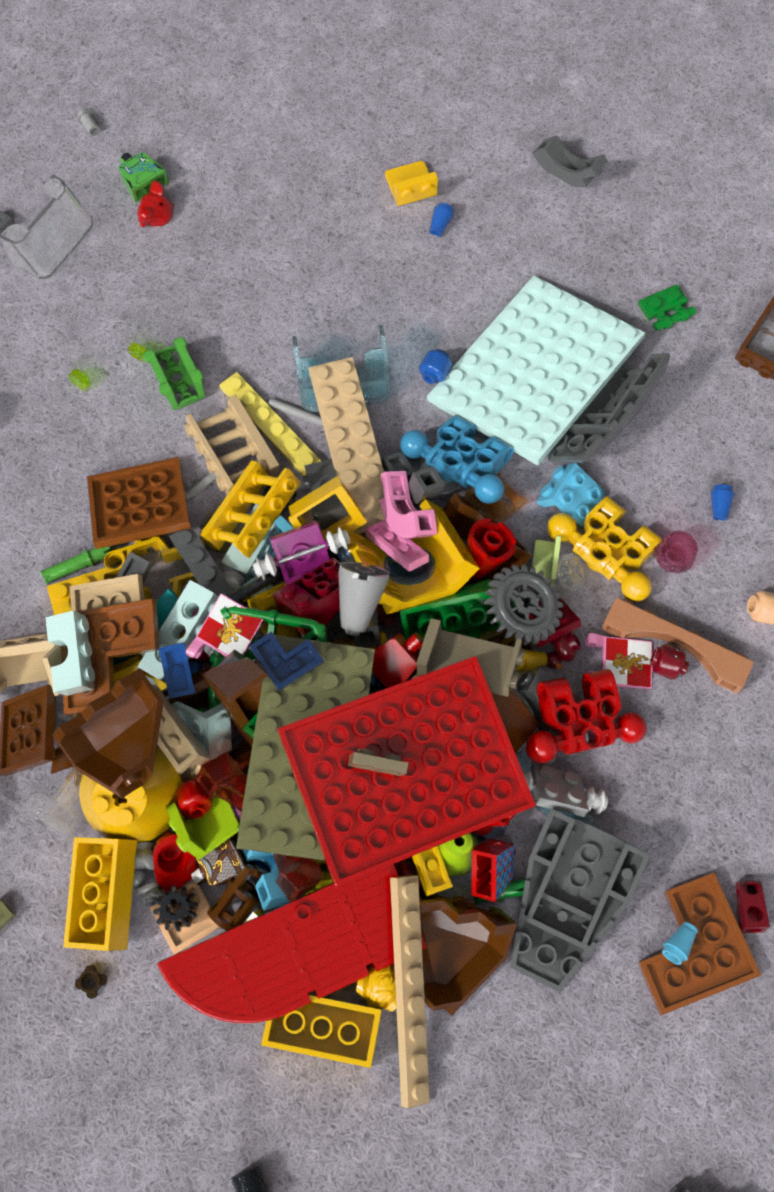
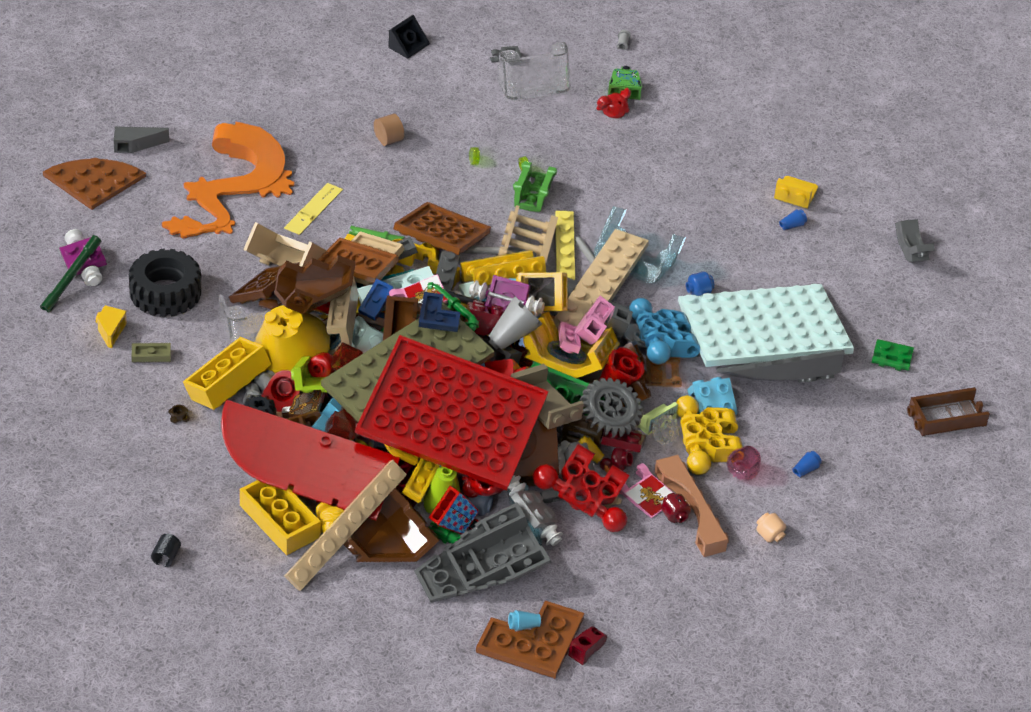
camera: 35 degrees right, 25 degrees down
(76, 671) = (335, 243): light aqua arch -> none
(389, 764) = (435, 387): dark tan plate -> none

